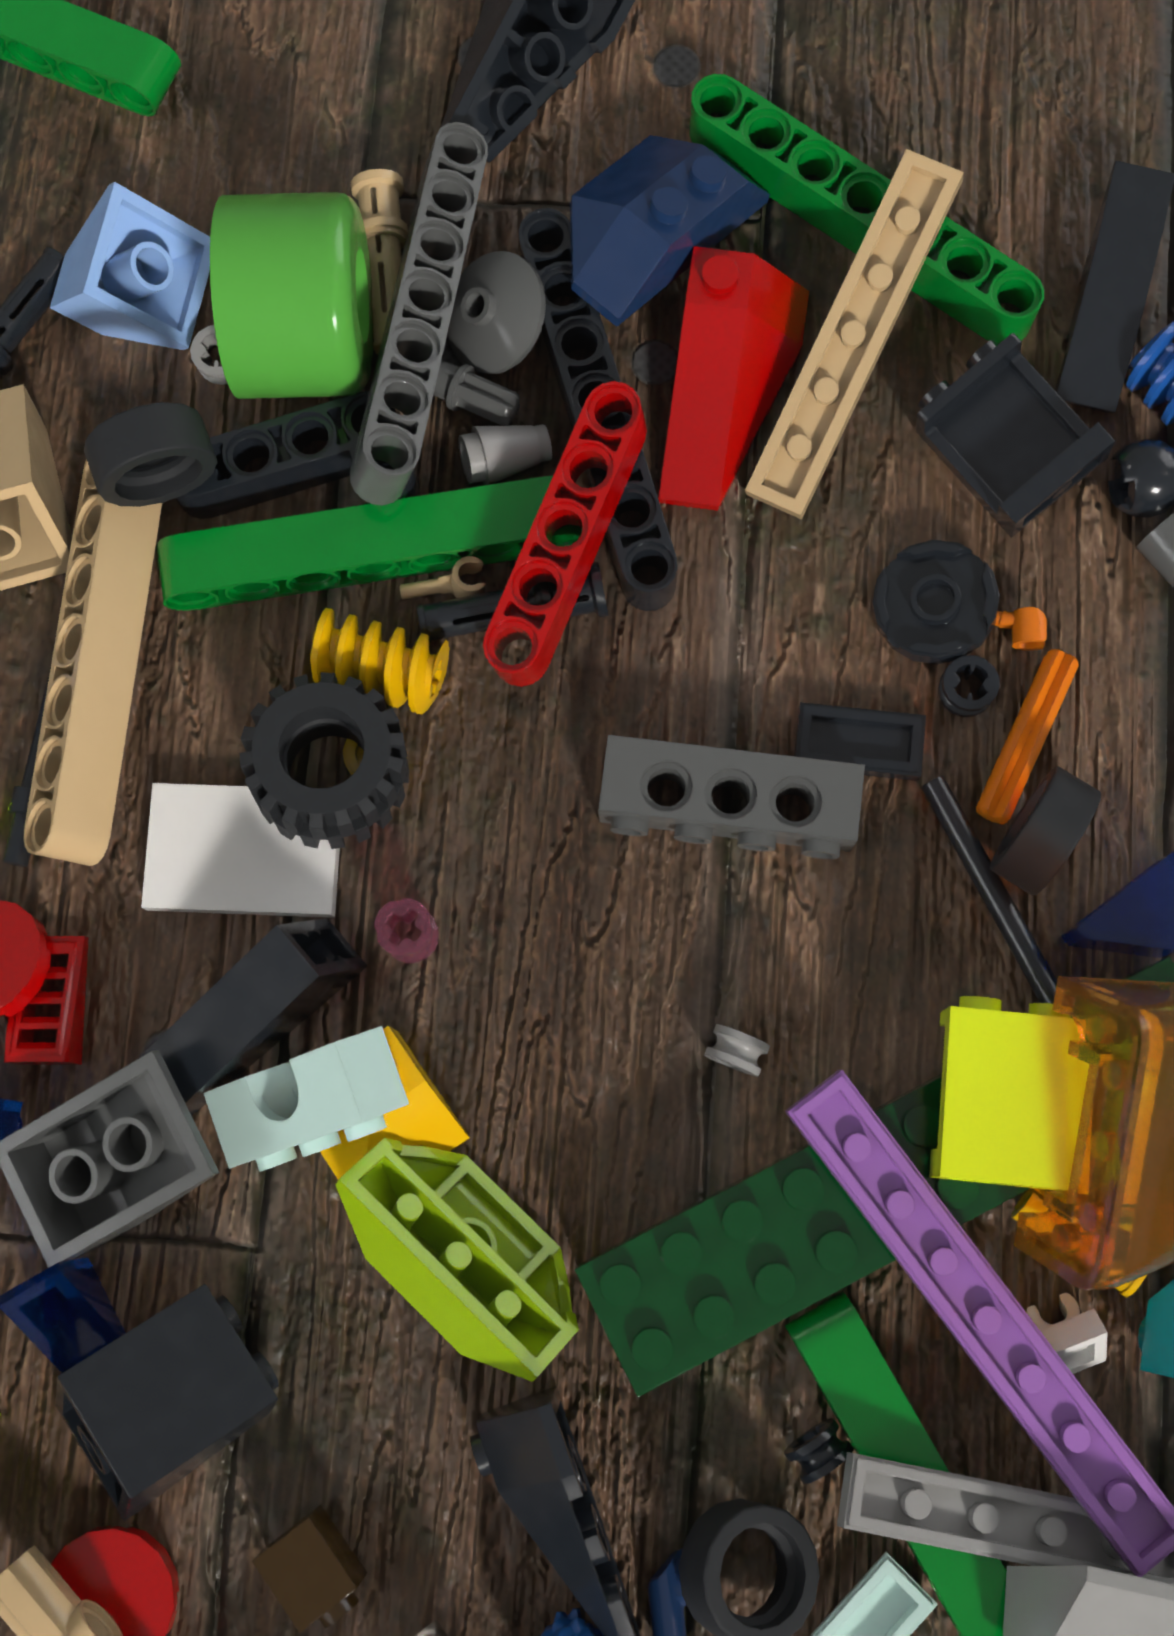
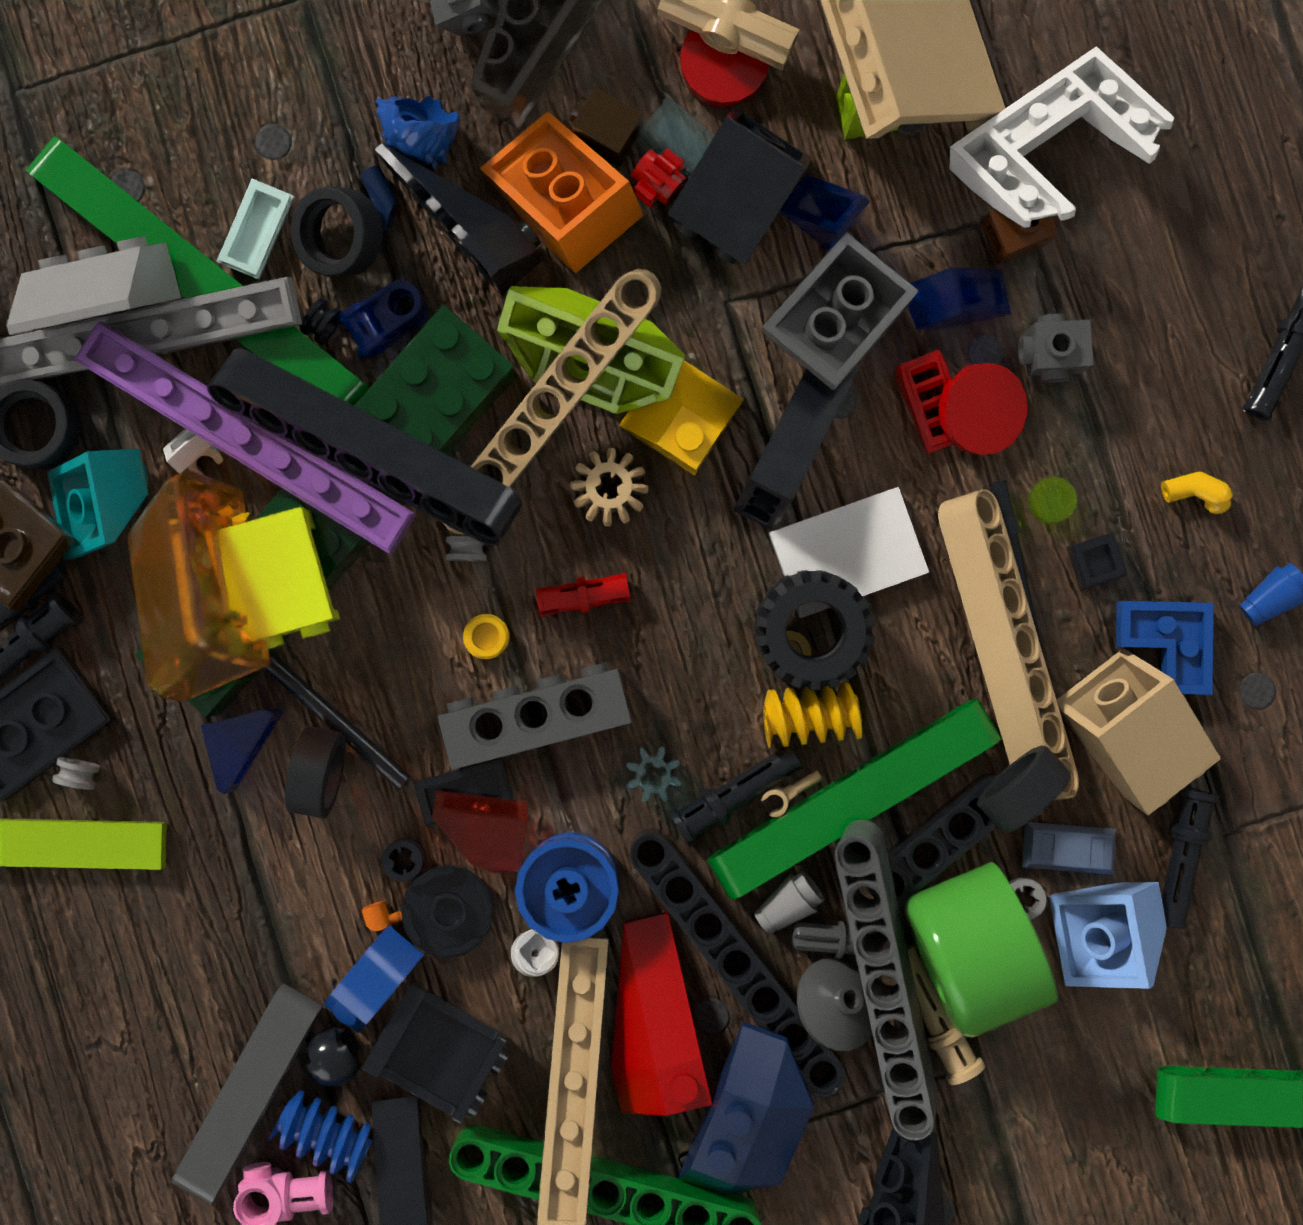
camera: 150 degrees right, 10 degrees up
(122, 383) = (1068, 848): none -> sand blue tile
(220, 1512) = (678, 131): none -> clear light blue tile
(270, 1461) = (659, 177): none -> red gear
(308, 1101) = (711, 409): light aqua arch -> none
(406, 911) = (725, 533): clear pink bush -> none
(409, 1500) = (563, 191): none -> orange slope
(497, 1042) = (594, 484): none -> tan gear
(520, 1214) = (560, 382): none -> tan beam
(566, 505) = (723, 872): red beam -> none
(605, 930) = (583, 594): none -> red pin
(625, 665) = (648, 785): none -> clear light blue gear
(734, 1418) = (380, 319): none -> clear blue piece
(754, 927) = (486, 636): none -> yellow tile
(776, 533) = (560, 913): none -> blue wheel
(825, 1234) = (365, 447): none -> black beam
(843, 510) = (534, 954): none -> white tile
(849, 678) = (484, 828): none -> clear red slope
(1027, 736) = (351, 839): orange axle -> none
(1060, 549) = (373, 979): none -> blue brick

